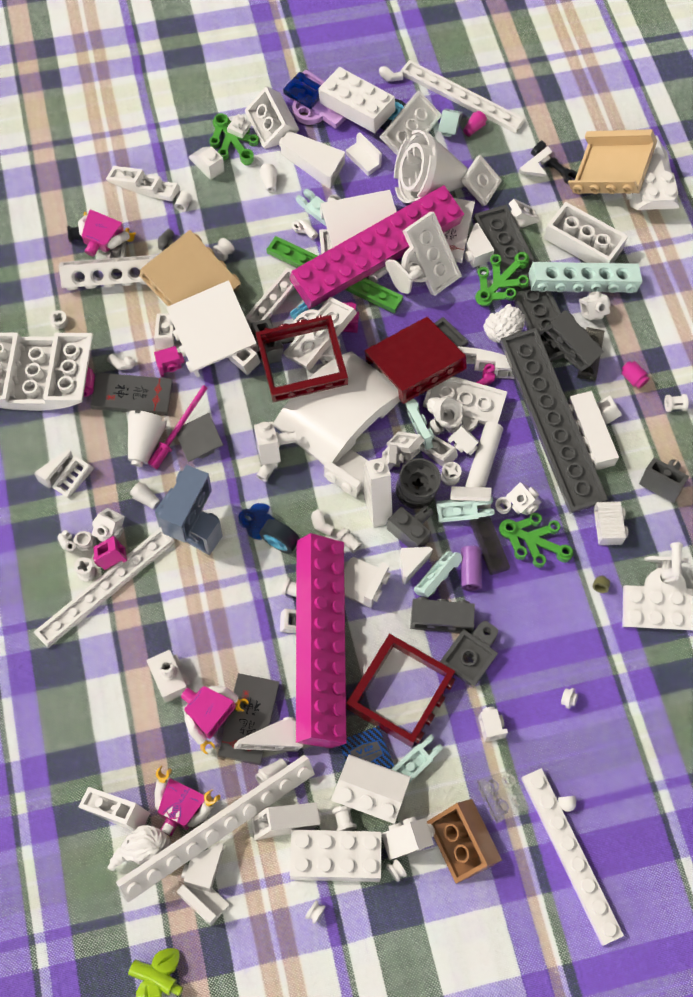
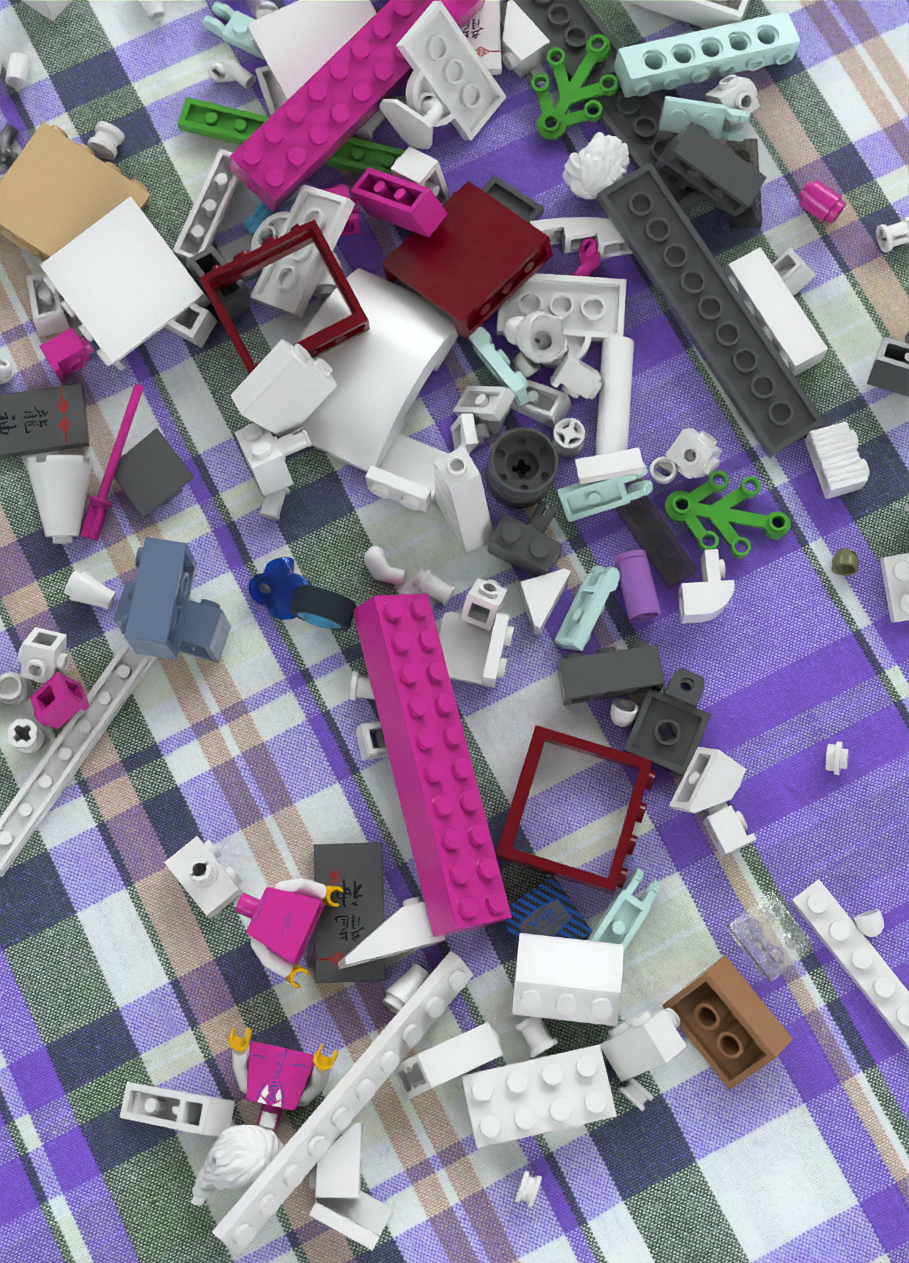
camera: 10 degrees left, 10 degrees up
(289, 405) = (284, 389): none -> white brick
(377, 551) = (485, 594): none -> white brick
(383, 318) = (399, 202): none -> dark pink brick
(399, 309) = (421, 170): none -> white slope
(444, 640) = (623, 712): none -> white hinge
(486, 691) = (707, 781): none -> white slope
(513, 585) = (708, 598): none -> white brick
(579, 311) = (680, 112): none -> light aqua hinge

